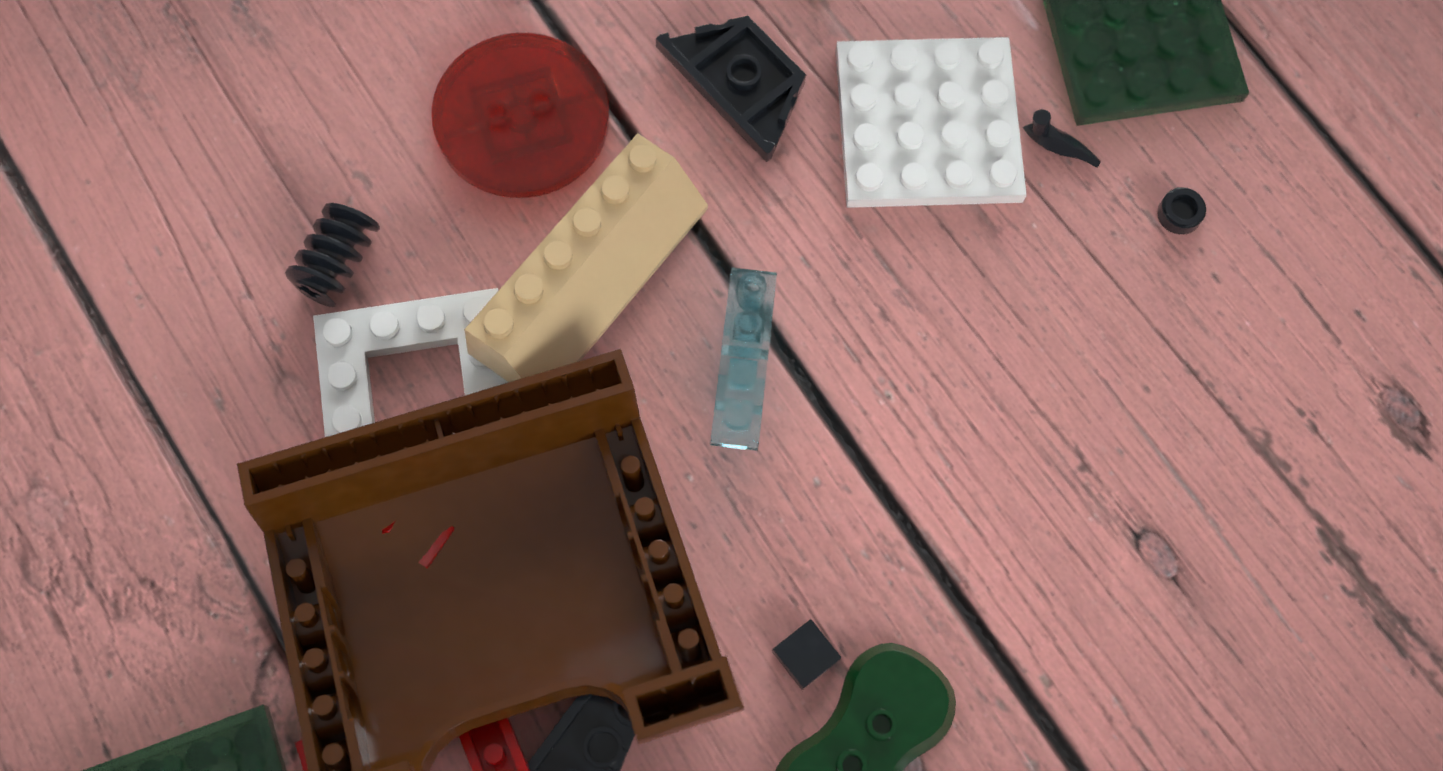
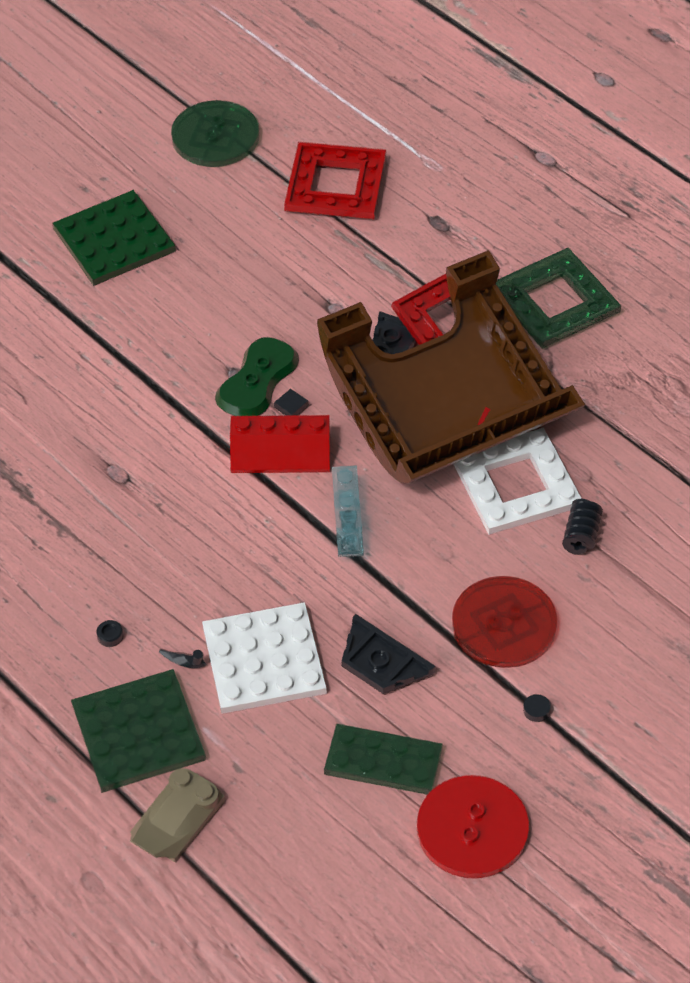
camera: 175 degrees right, 20 degrees down
(588, 265) = (441, 537): tan slope -> none
(845, 545) = (280, 444): none -> red slope

